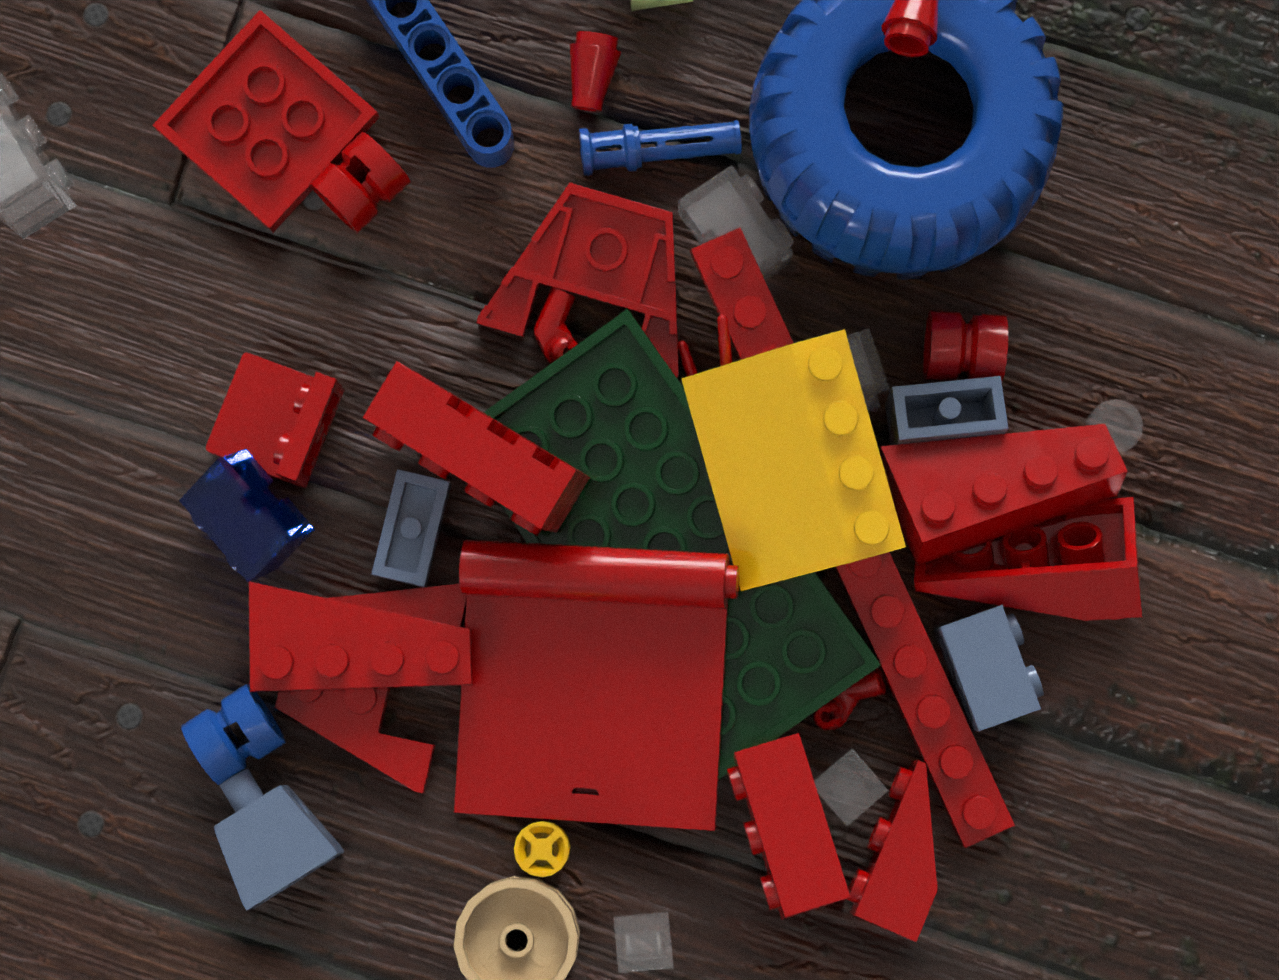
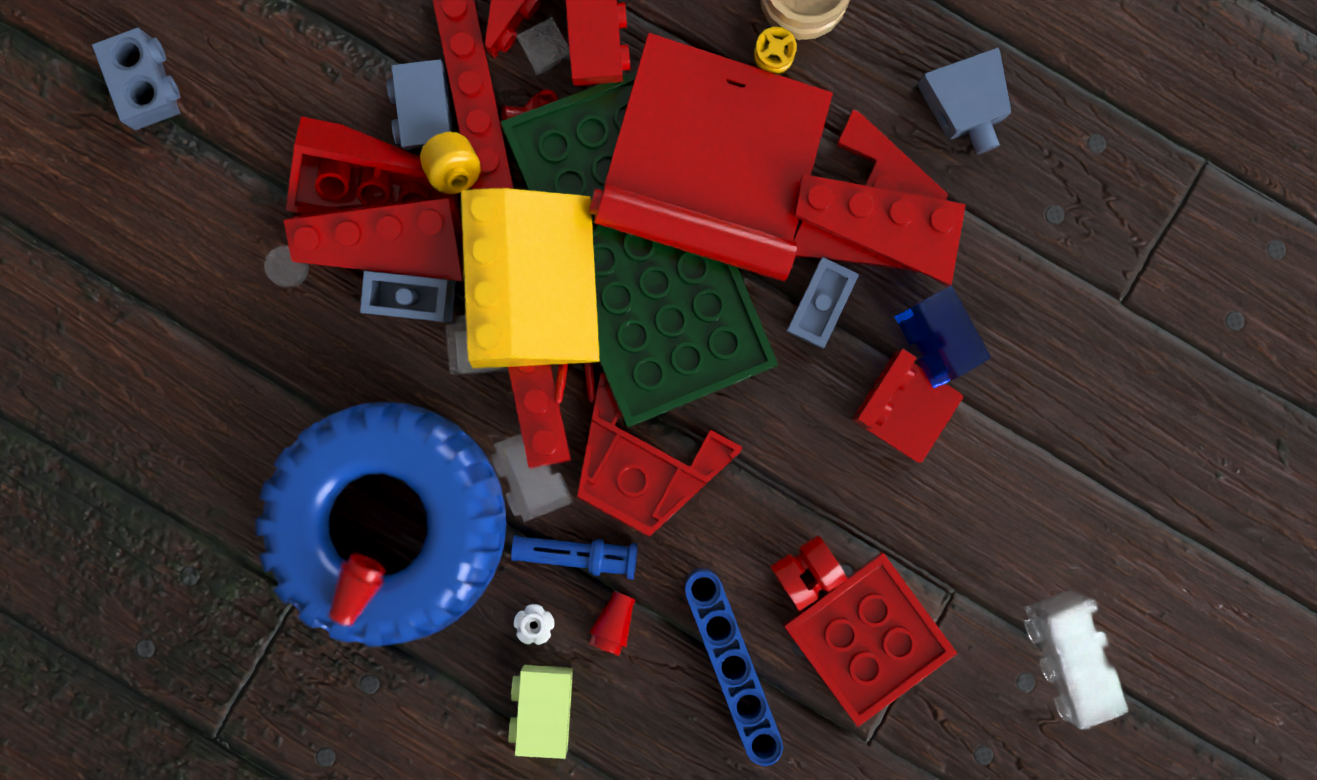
camera: 175 degrees left, 5 degrees up
(216, 743) = (990, 176): blue wheel -> none
(475, 449) = (764, 343): red wedge -> none
(551, 328) = (686, 429): red arm -> none
(695, 62) = (533, 613): none -> white plate
(932, 592) = (450, 163): none -> yellow head
(956, 347) = (375, 344): red wheel -> none

